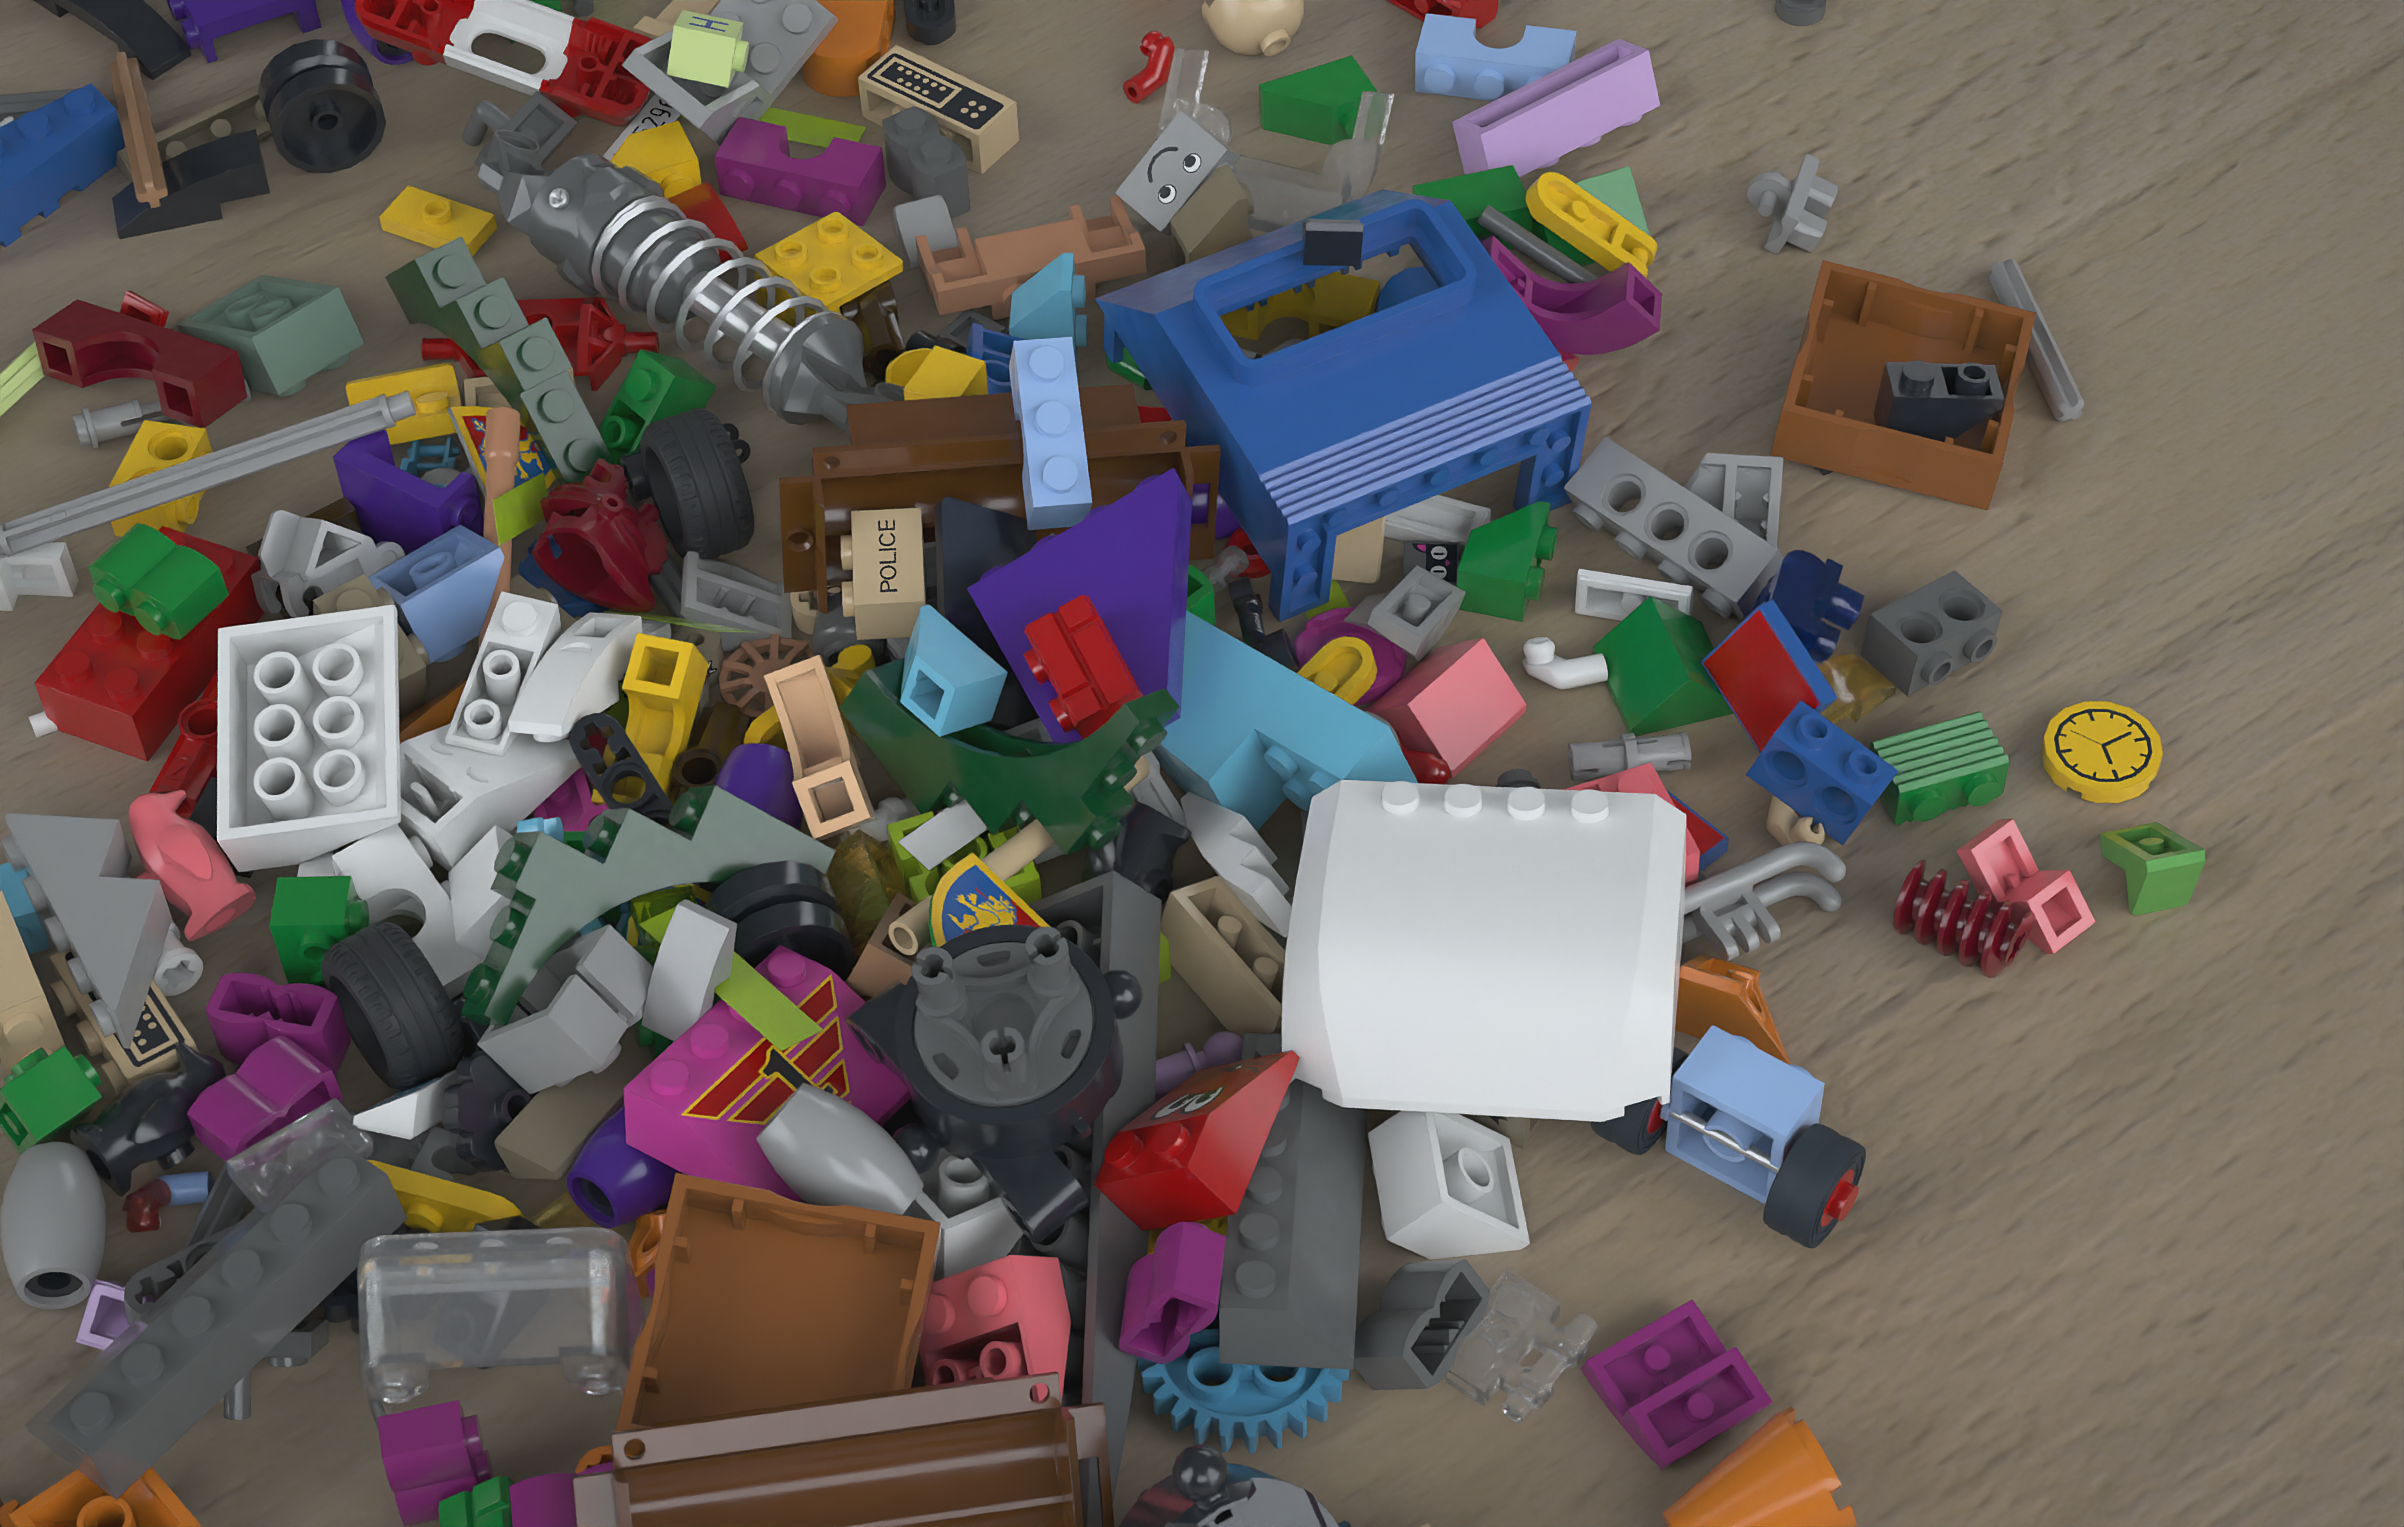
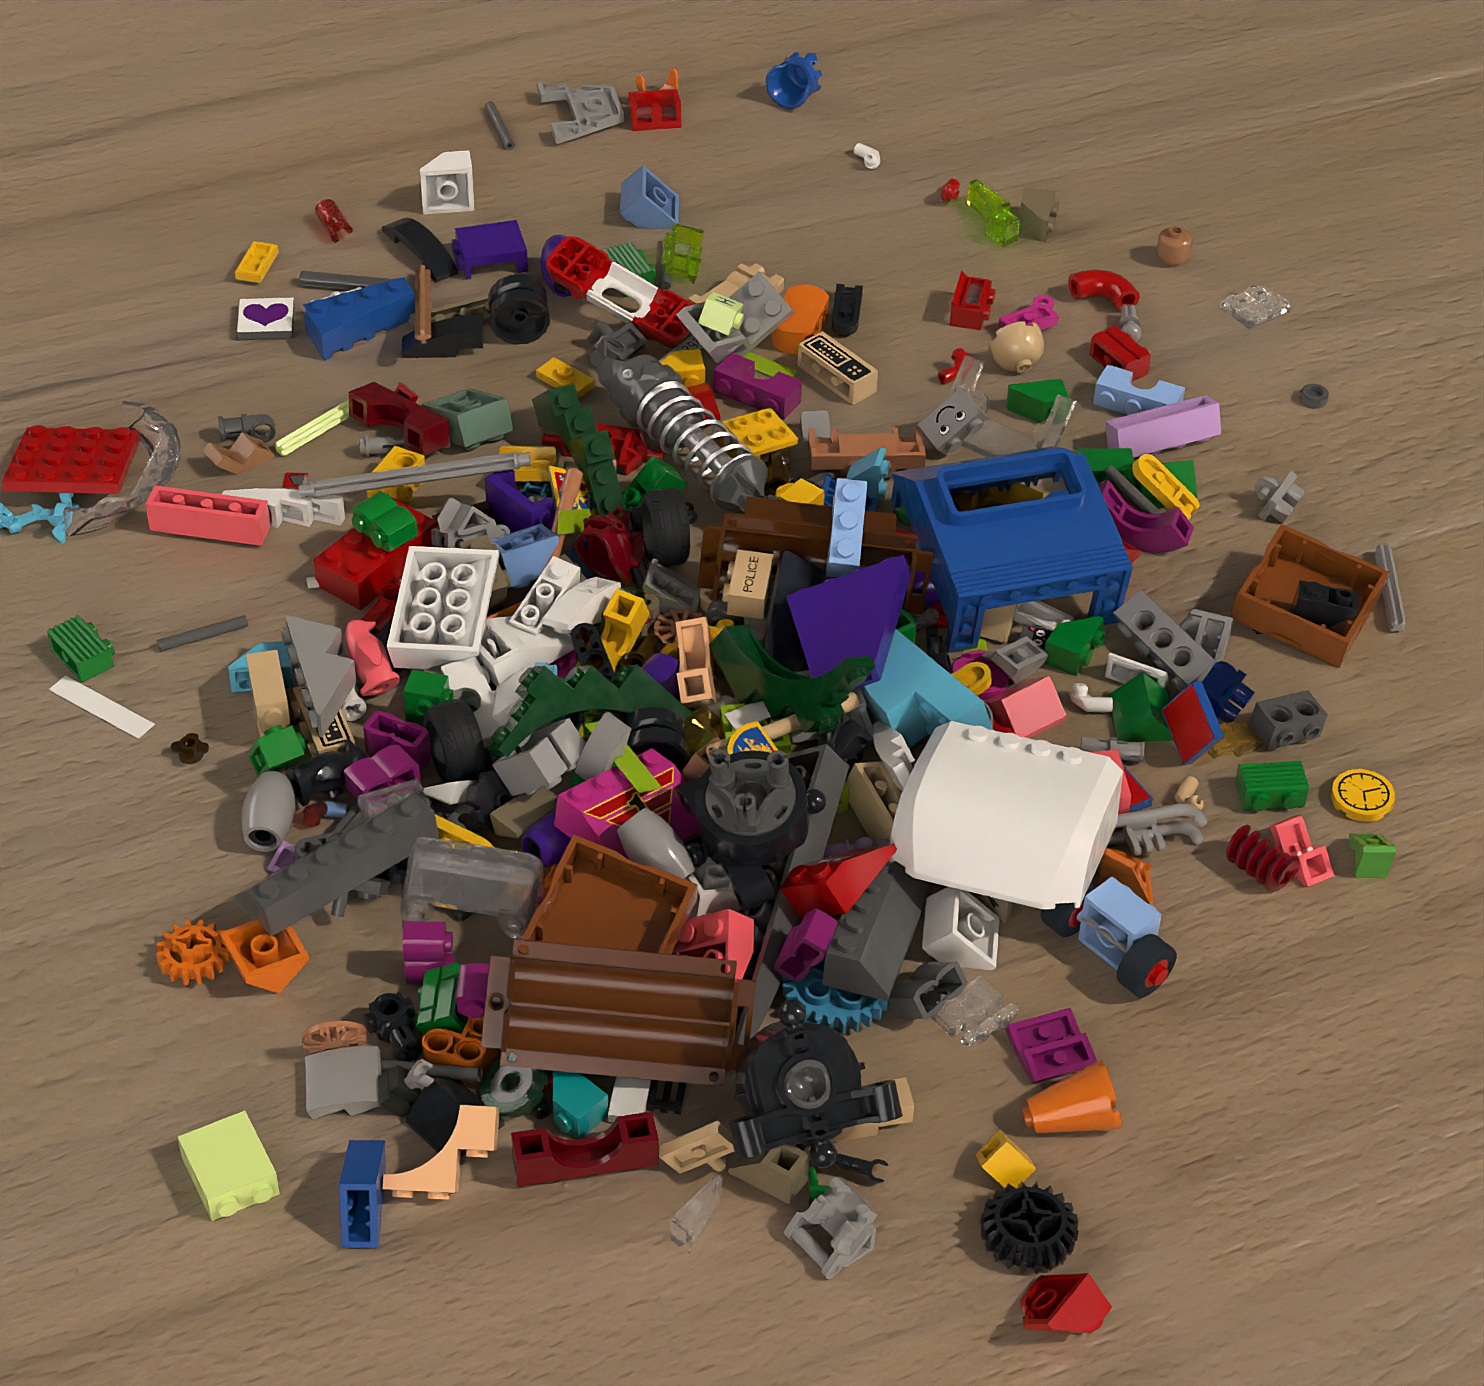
camera: 10 degrees right, 5 degrees down
(925, 161) = (823, 392): dark grey brick -> none
(948, 676) = (767, 637): medium azure slope -> none
(1082, 664) = (832, 637): red brick -> none
(1212, 218) = (965, 444): dark tan slope -> none
(1332, 242) = (1014, 461): black slope -> none
(1821, 772) = (1208, 773): blue brick -> none

